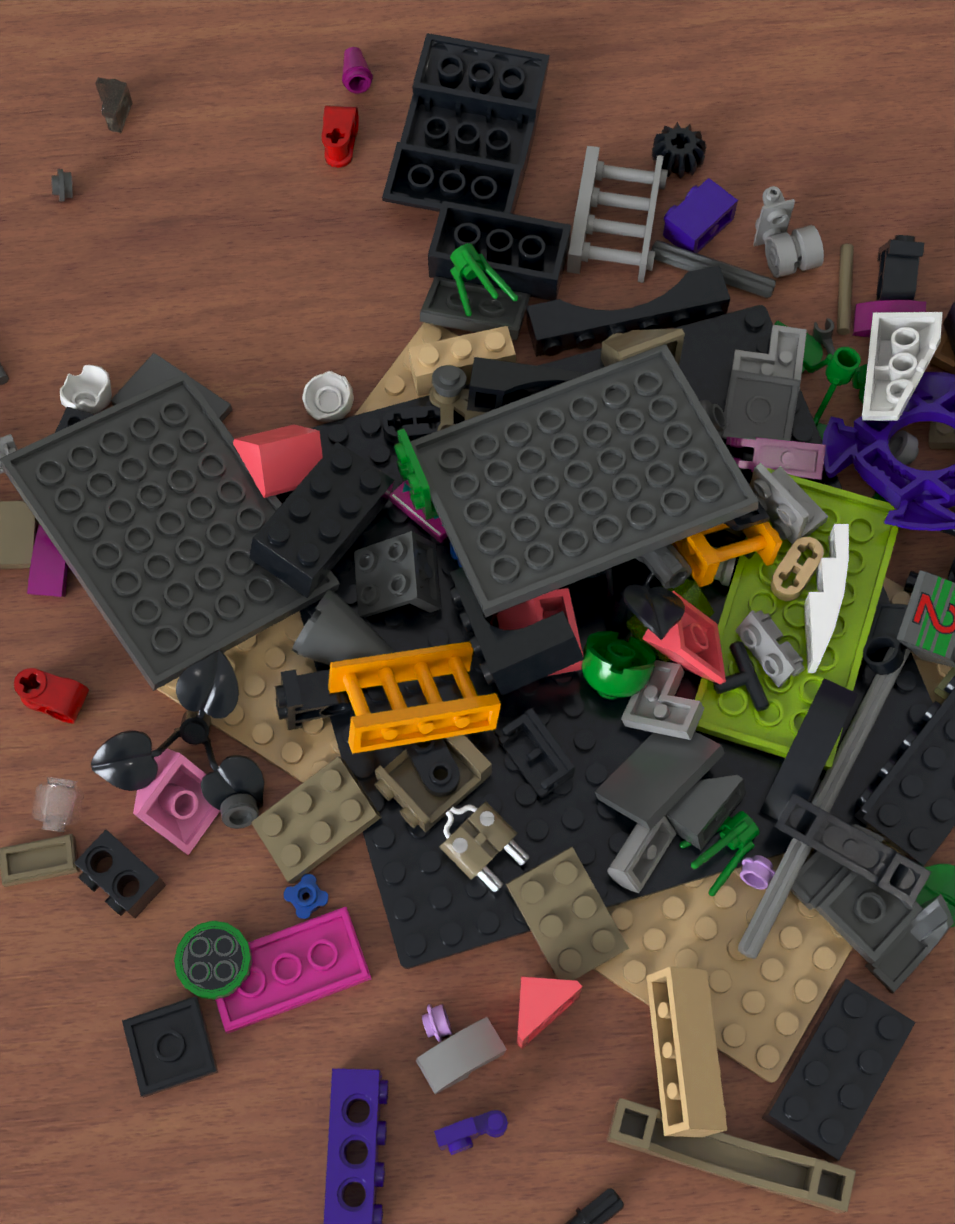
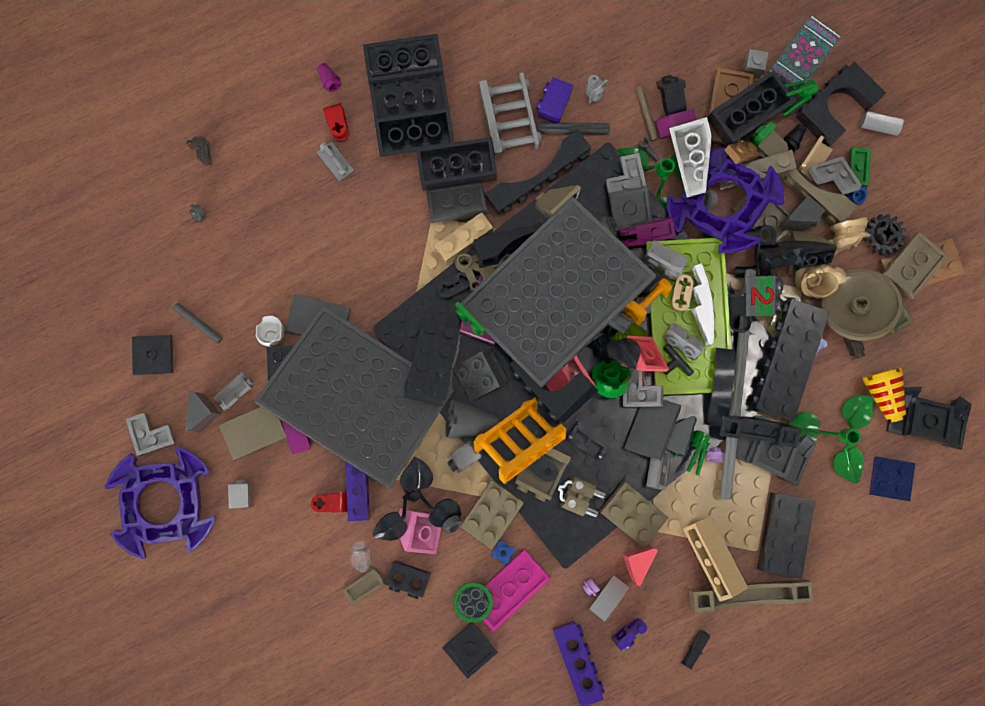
camera: 25 degrees left, 15 degrees up
(102, 694) = (357, 494): none -> dark purple brick
(280, 457) = (394, 333): coral slope -> none
(310, 185) = (334, 160): none -> light grey hinge
(328, 397) = (400, 285): white hair -> none
(449, 380) = (464, 257): dark grey plate -> none
(471, 265) = (446, 183): green plant -> none
(680, 149) = (531, 56): black gear -> none
(799, 250) = (615, 101): light grey wheel -> none

